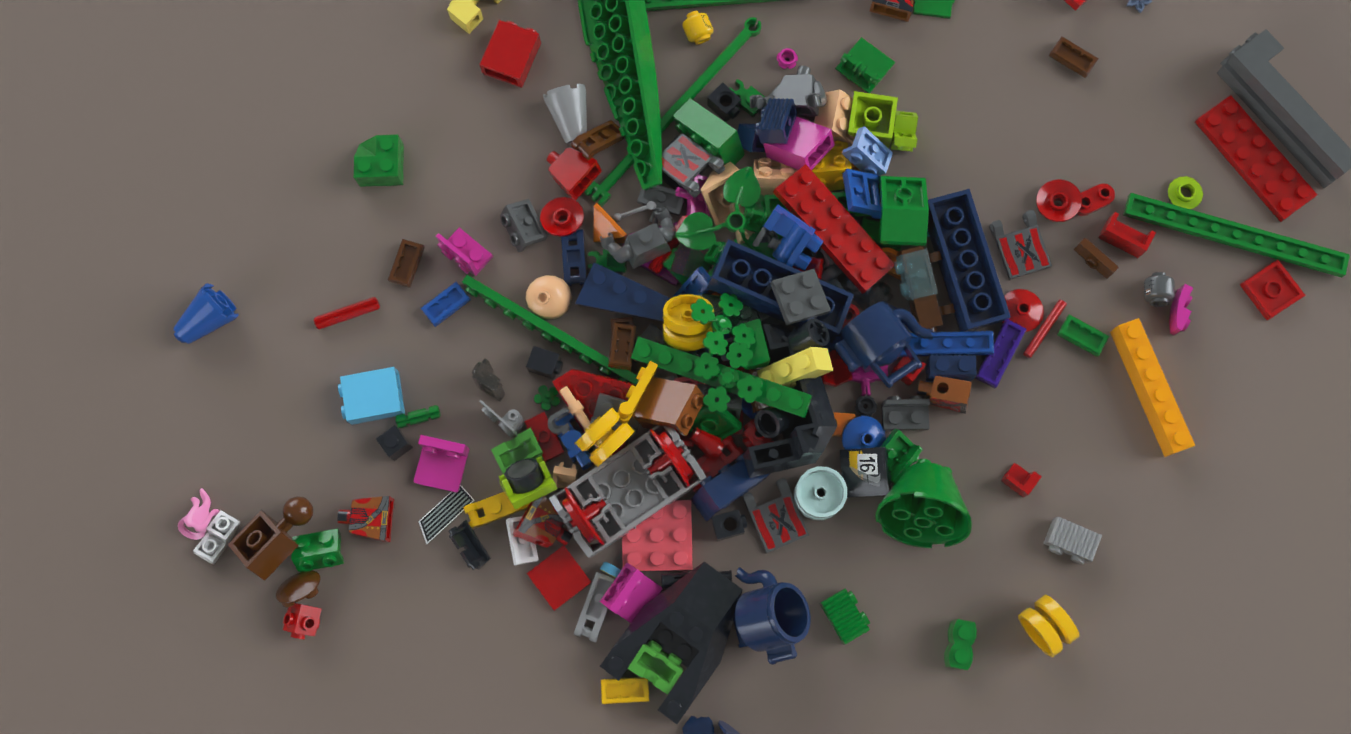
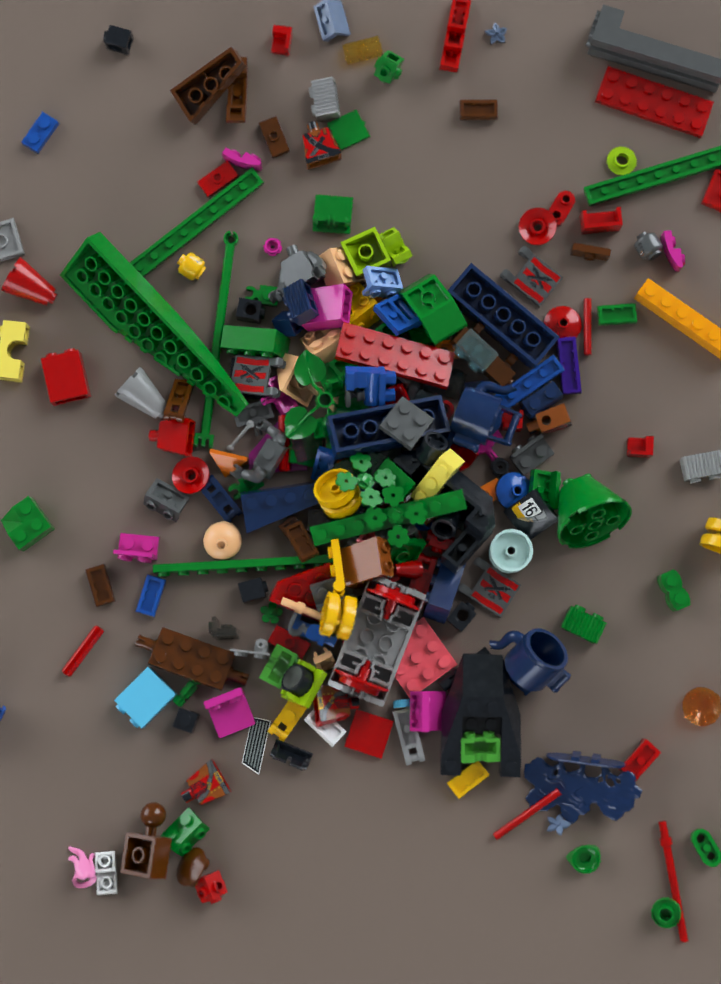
camera: 35 degrees left, 5 degrees up
(441, 389) = (192, 659): none -> reddish brown plate

